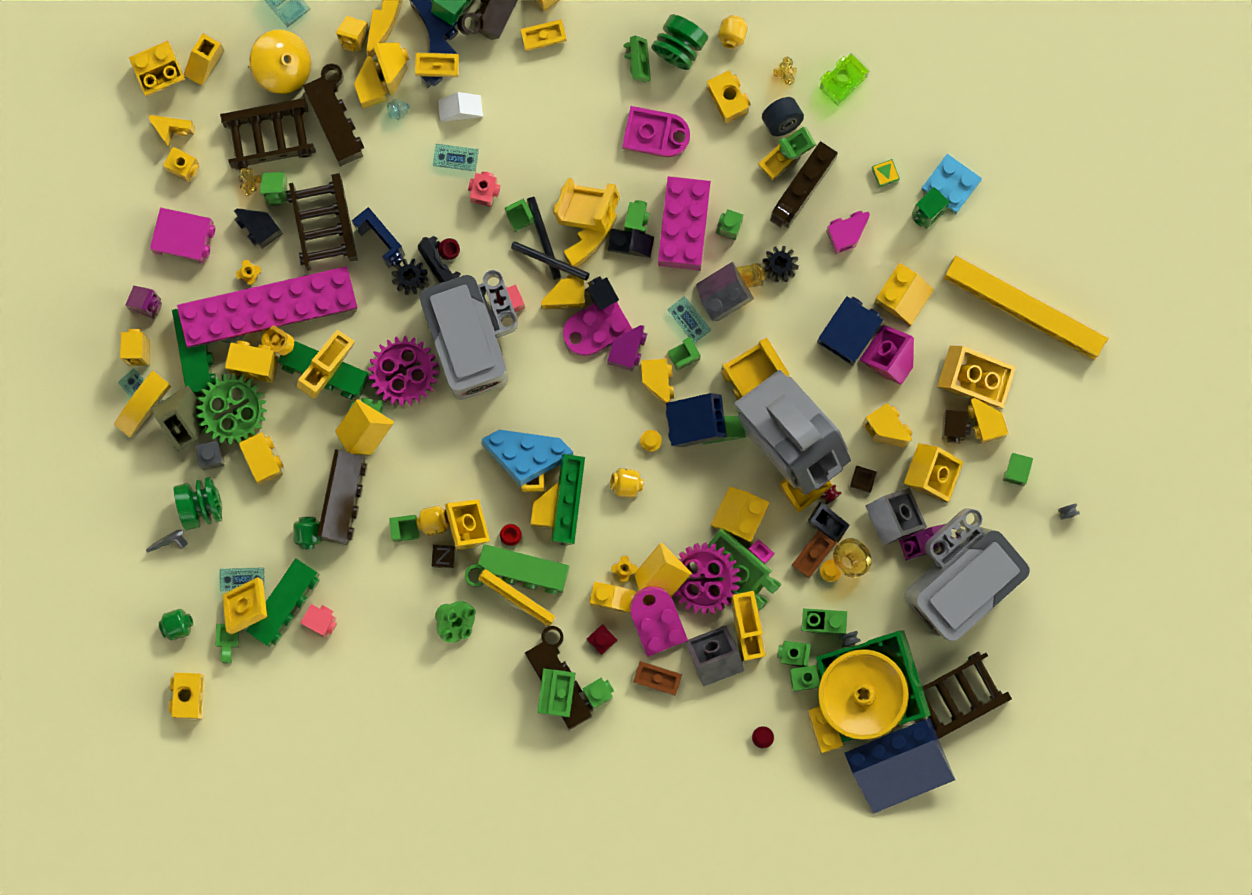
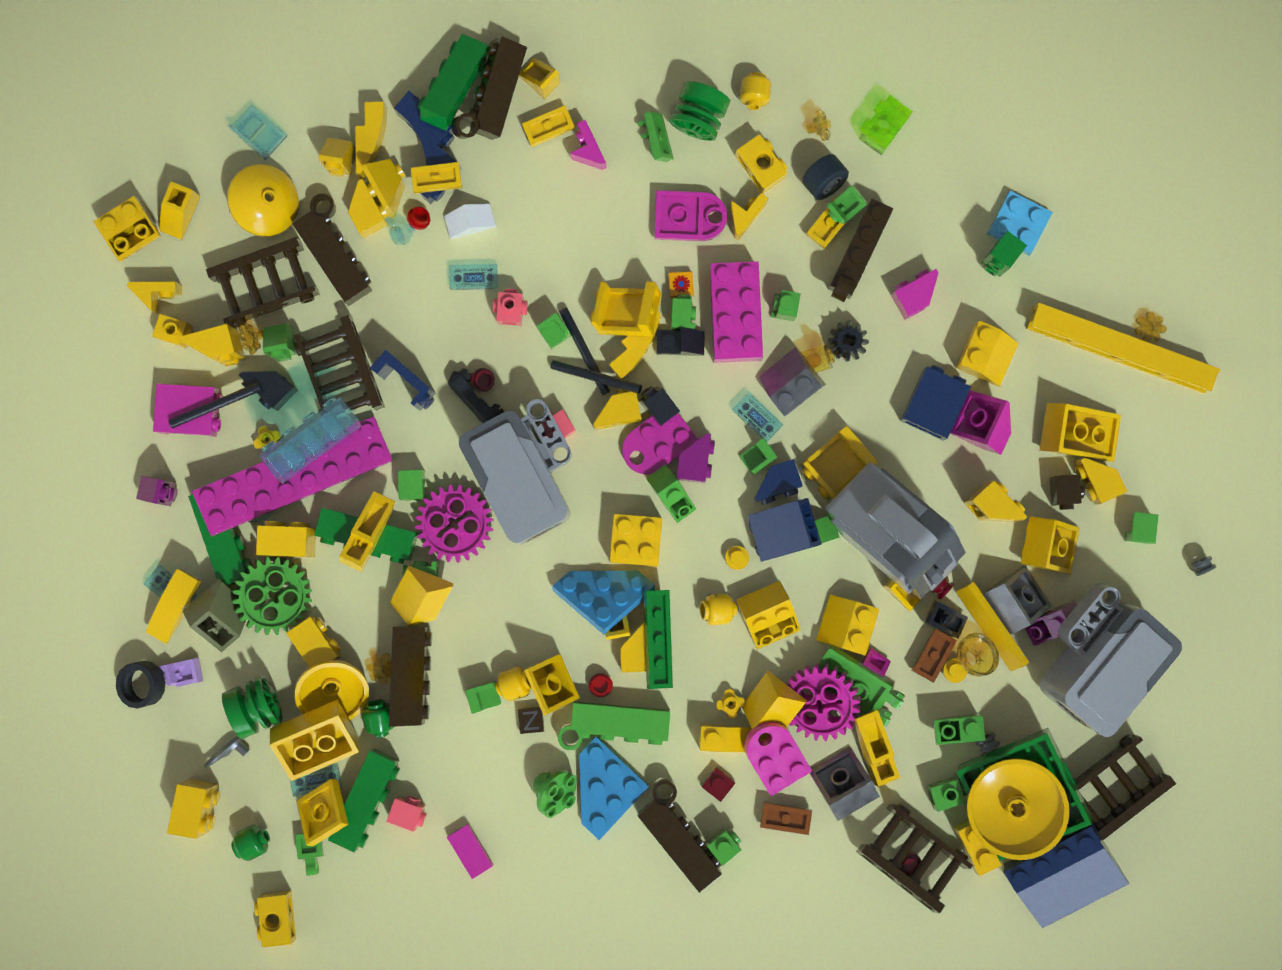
camera: 10 degrees left, 5 degrees up
(87, 465) = (125, 689): none -> black tyre
(131, 584) = (193, 808): none -> yellow brick
(135, 348) = (154, 544): yellow brick -> none
(137, 466) = (182, 672): none -> lavender slope
(209, 233) = (215, 405): none -> black bar
(210, 455) = (257, 650): dark grey brick -> none
(219, 181) = (217, 343): none -> yellow slope
(248, 540) = (314, 740): none -> yellow brick
(270, 514) = (349, 688): none -> yellow dish
(278, 339) = (311, 513): yellow plate -> none
(289, 274) = (309, 440): none -> clear light blue brick
(317, 494) = (385, 666): none -> clear yellow plant
(370, 664) = (470, 851): none -> dark pink tile
(371, 331) = (411, 485): none -> bright green panel
(405, 270) = (450, 423): black gear -> none
(415, 98) = (418, 218): none -> red plate
(500, 629) = (606, 787): none -> dark azure plate
(516, 597) = (618, 755): yellow axle -> none
(556, 692) = (680, 857): bright green plate -> none
(562, 410) = (636, 540): none -> yellow brick
(577, 64) = (590, 153): none -> dark pink slope
(601, 374) = (671, 493): none -> bright green slope
(639, 191) = (681, 284): none -> light orange tile
(656, 378) = (732, 489): yellow slope -> none
(670, 495) = (768, 614): none -> yellow slope
(699, 377) = (779, 480): none -> dark blue slope
(704, 143) = (743, 219): none -> yellow slope
(745, 735) = (892, 867): none -> dark brown fence
(802, 657) = (940, 764): bright green brick -> none
(863, 479) = (974, 564): dark brown tile -> none
(869, 535) = (992, 626): none -> yellow tile
(885, 173) = (946, 222): tile -> none
(1052, 295) = (1150, 327): none -> clear yellow plant

